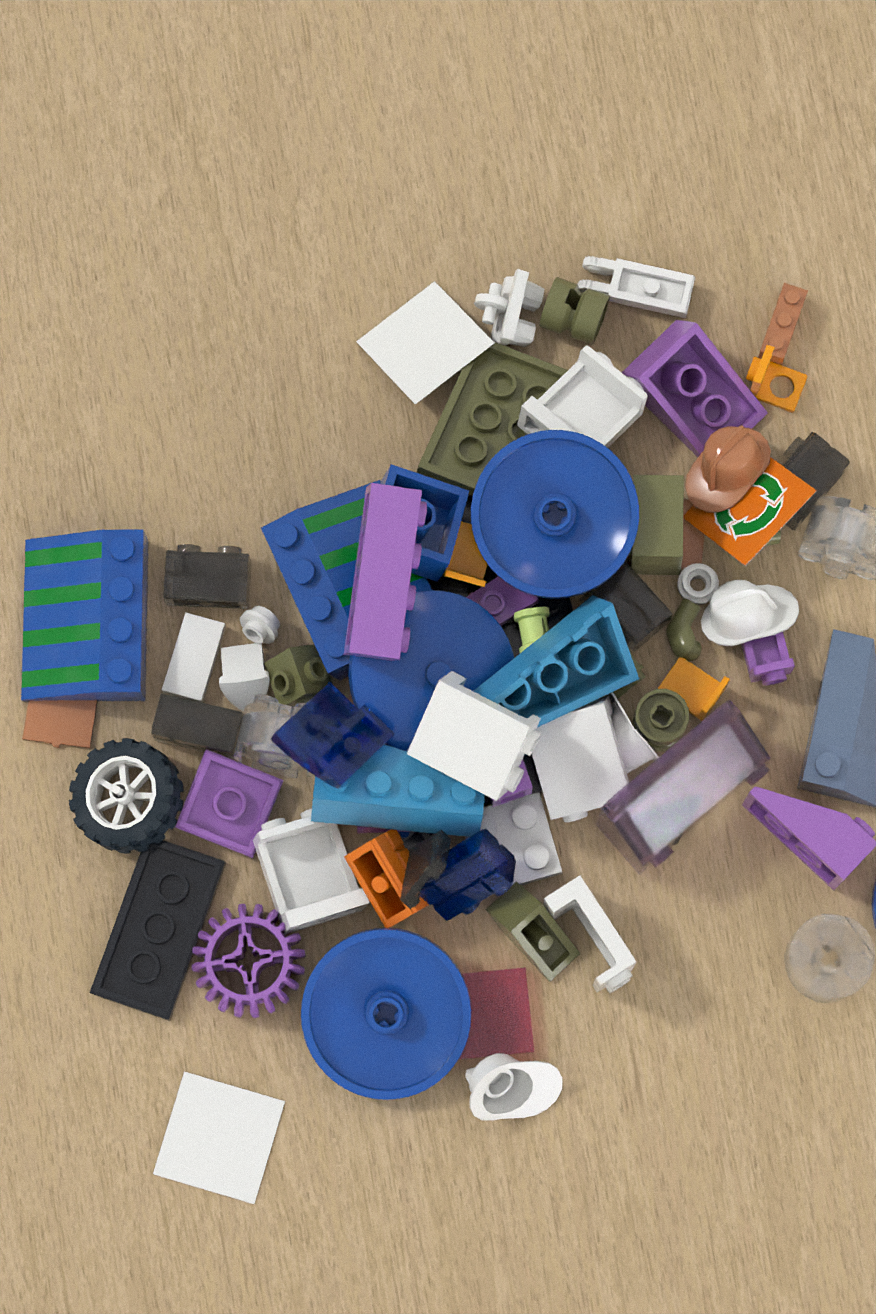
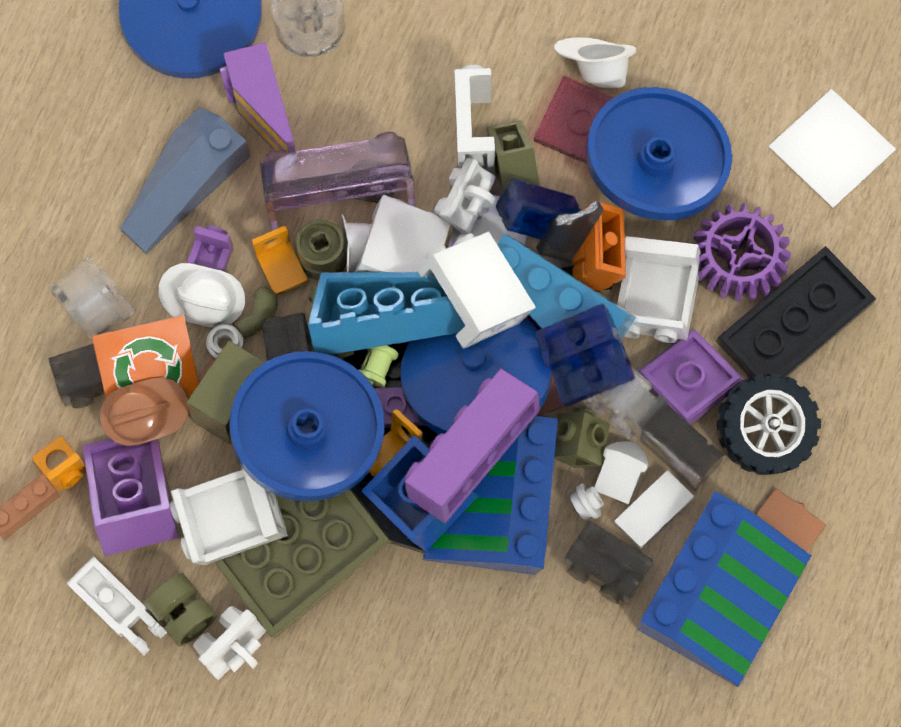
camera: 150 degrees left, 5 degrees down
(425, 342) = (317, 658): white sticker -> none
(548, 851) = (467, 197): none -> white hips

